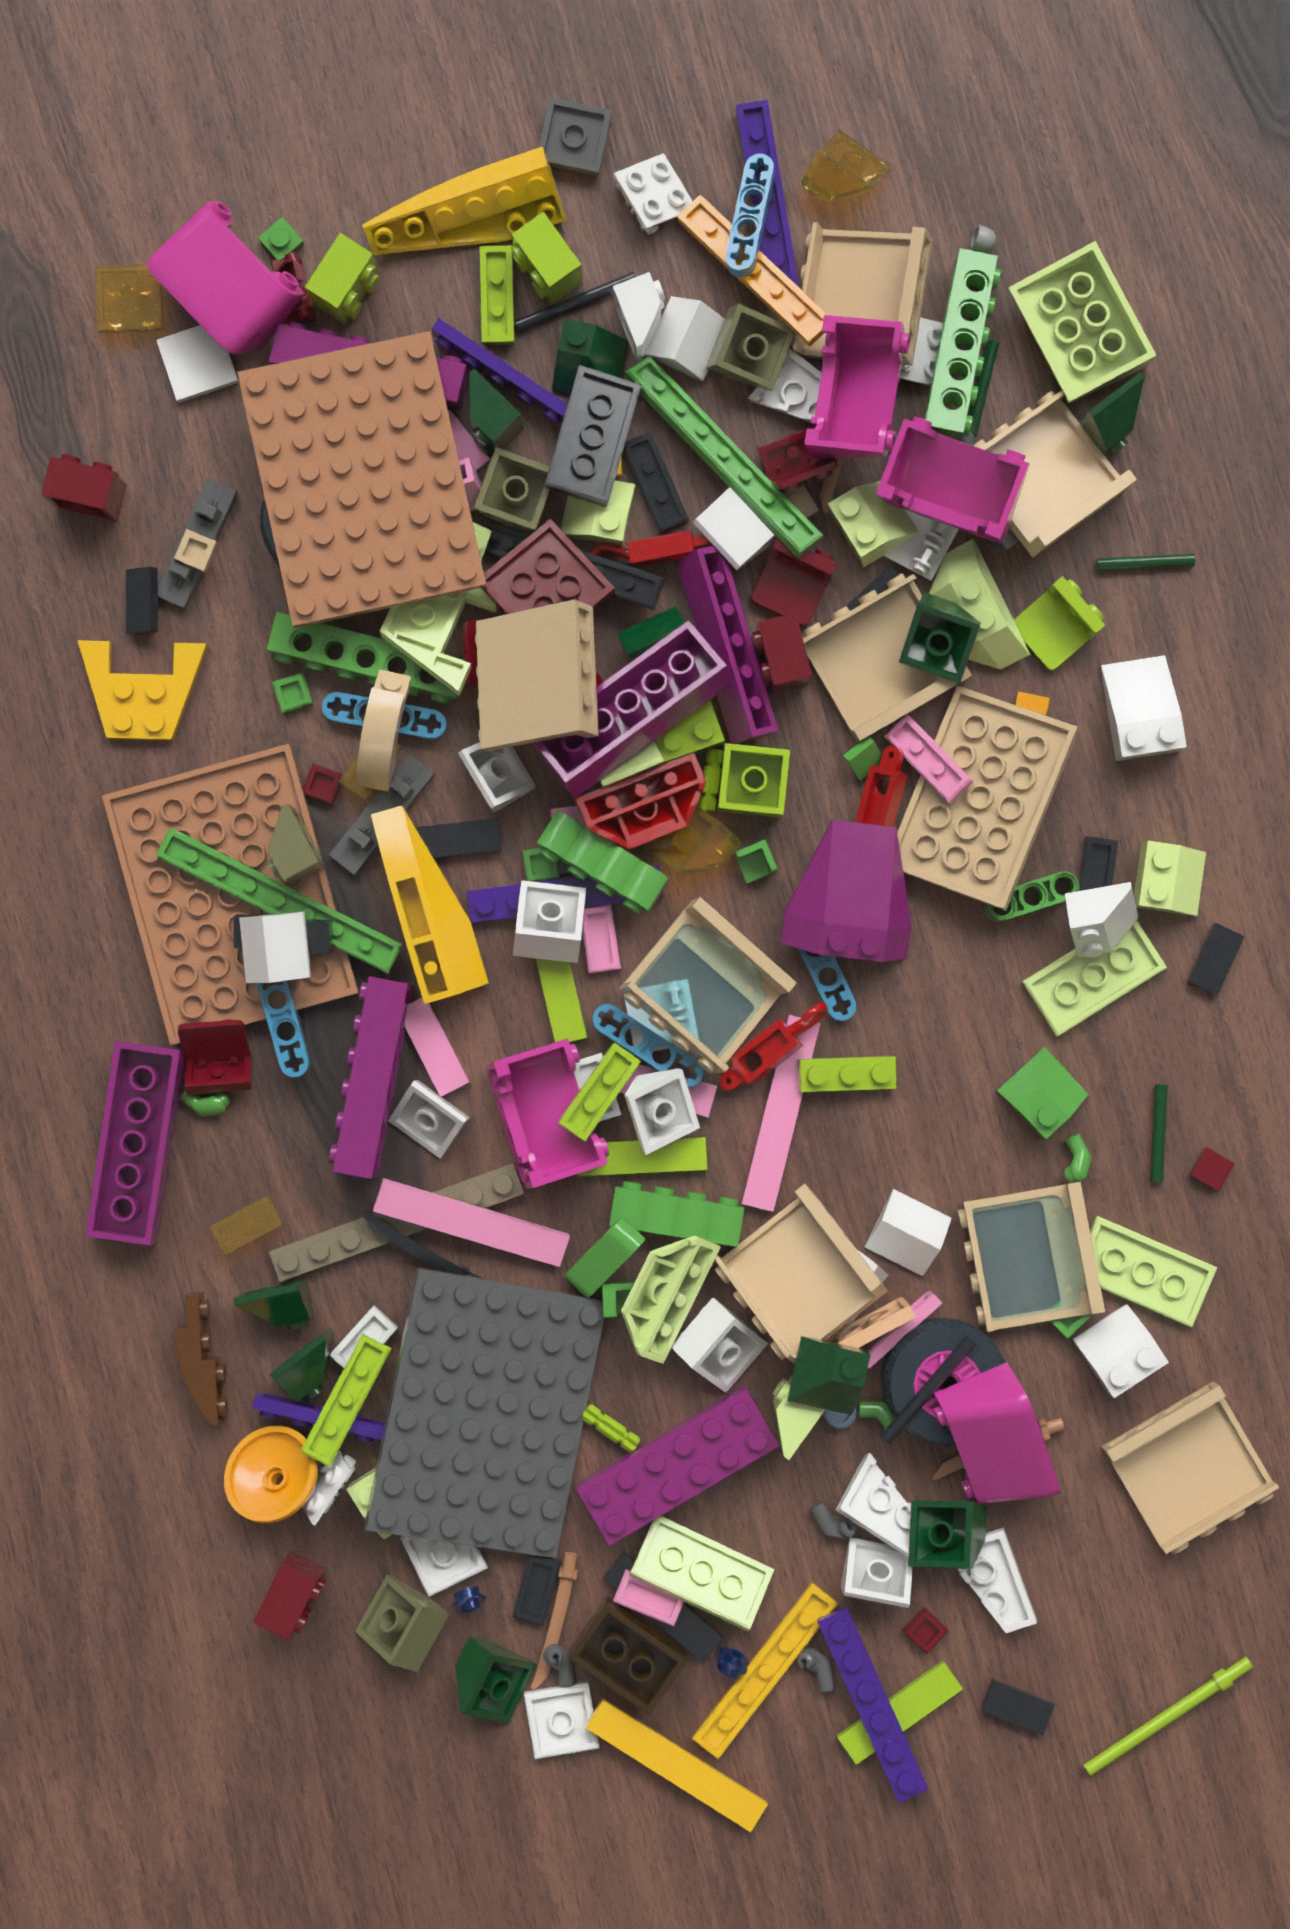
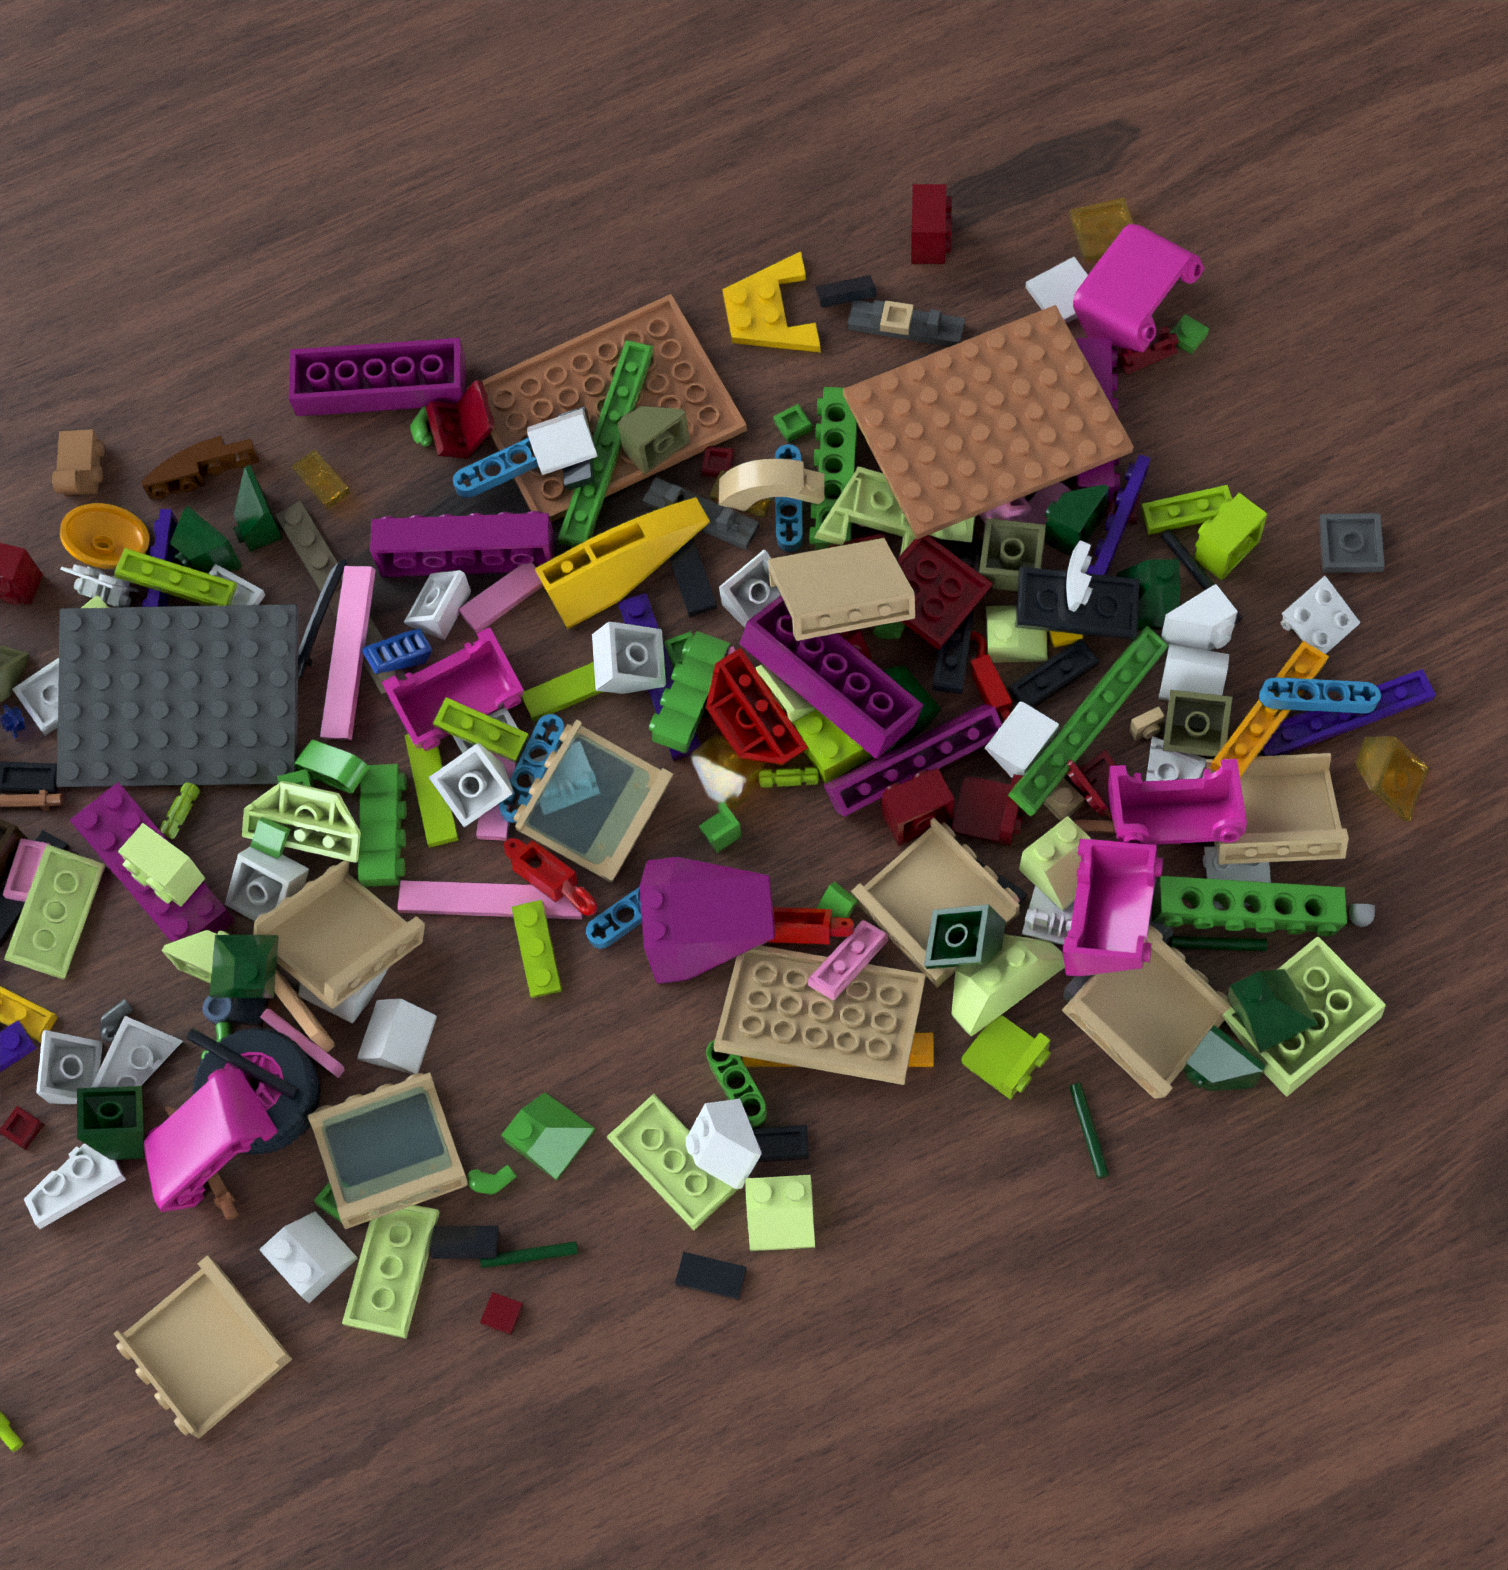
camera: 85 degrees right, 20 degrees down
(167, 1496) = (78, 463): none -> medium nougat hinge
(343, 279) = (1164, 379): lime brick -> none
(471, 207) = (1261, 471): yellow wedge -> none
(477, 1149) = (412, 641): none -> blue slope
(586, 430) = (1077, 580): none -> white slope
(600, 939) = (623, 713): bright pink tile -> none
(676, 1332) = (270, 837): none -> tile
(700, 1450) = (160, 866): none -> yellowish green brick
(736, 399) = (1147, 724): none -> tan plate
(753, 780) = (793, 807): lime brick -> none
(1078, 352) = (1270, 1008): none -> dark green slope
(1136, 1193) = (464, 1242): none -> black tile
(1142, 708) = (942, 1153): white slope -> none

